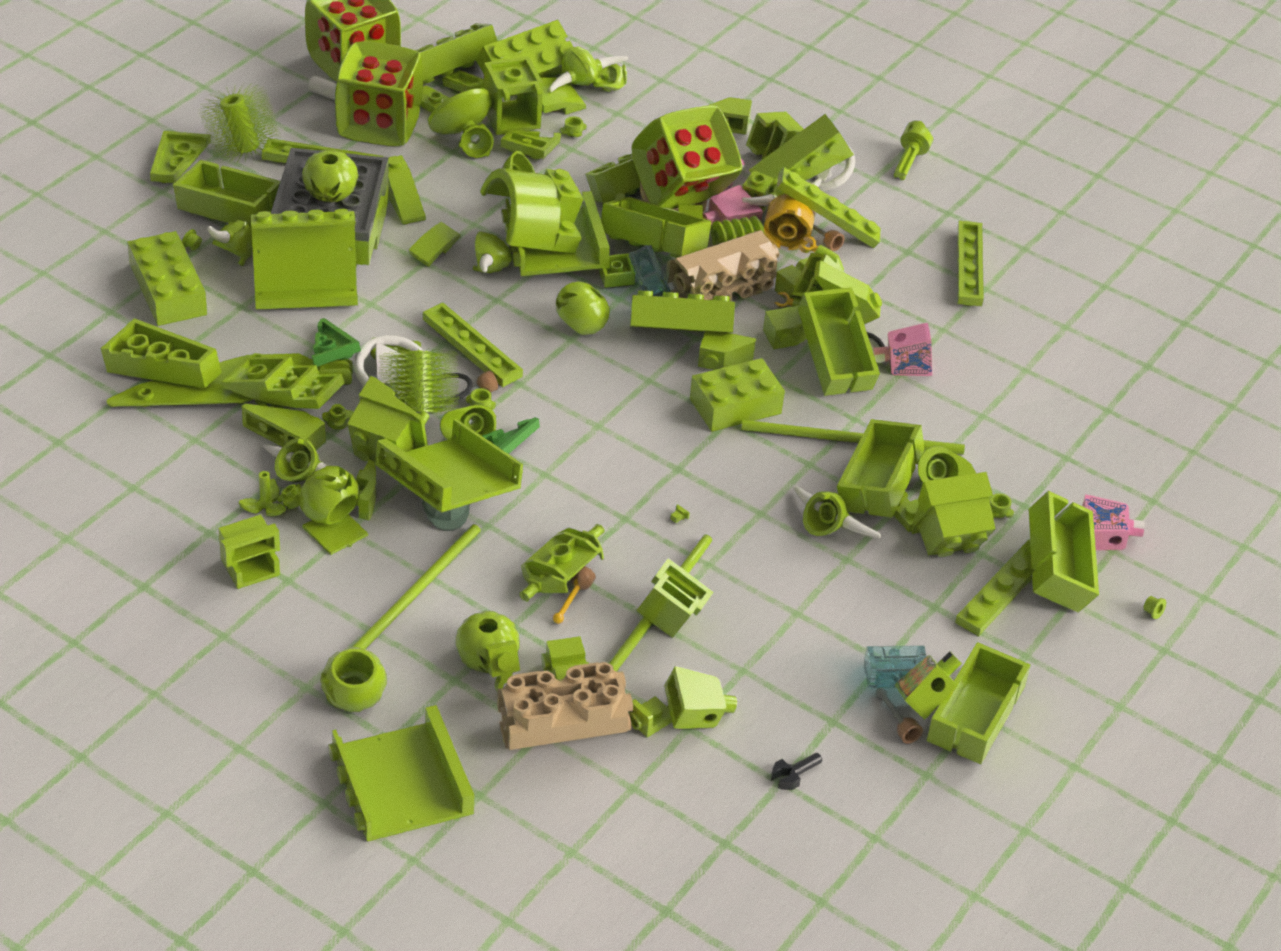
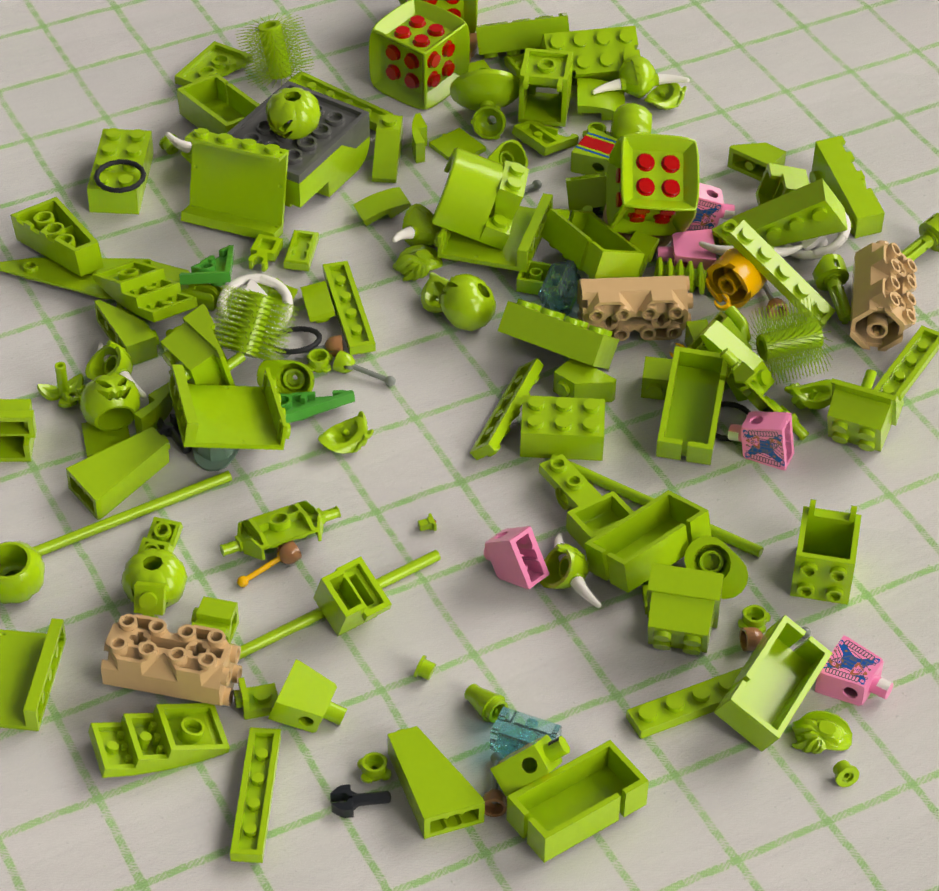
camera: 30 degrees right, 0 degrees up
(183, 296) = (117, 162): none -> black piece
(358, 315) = (265, 249): none -> lime plate
(374, 558) = (118, 471): none -> lime slope
(390, 305) = (301, 250): none -> lime plate
(393, 503) = (173, 432): none -> black bar
(423, 176) = (419, 138): none -> lime slope
(439, 339) = (318, 302): none -> lime slope
(457, 171) = (457, 138): none -> lime piece
(457, 605) = (162, 535): none -> lime slope
(501, 286) = (417, 261): none -> lime hat
(507, 395) = (345, 363): none -> hinge
(542, 309) = (432, 291): none -> lime hat
(557, 458) = (347, 435): none -> lime hat
(591, 781) = (158, 740): none -> lime slope
(593, 146) = (592, 153): none -> lime torso
(607, 115) = (631, 119): none -> lime piece
(677, 393) = (506, 410): none -> lime plate
(711, 797) = (255, 795): none -> lime plate
(770, 638) = (424, 668): none -> lime piece
(783, 516) = (516, 557): none -> bright pink torso
(790, 737) = (374, 767): none -> lime plate
(806, 106) = (848, 185): none -> lime wedge
(818, 462) = (590, 510): none -> lime plate
(842, 649) = (485, 702): none -> lime cone
(849, 733) = (432, 785): none -> lime slope
(861, 198) = (832, 279): none -> lime piece
(876, 305) = (753, 391): none -> lime plate
(879, 260) = (790, 340): none -> lime piece
(914, 203) = (882, 296): none -> tan brick
(916, 303) = (811, 395): none -> lime hat
(971, 307) = (861, 413): none -> lime piece
(1010, 522) = (751, 637): none -> medium nougat hinge
(1025, 433) = (826, 554): none -> lime container
(1115, 581) = (821, 732): none -> lime hat

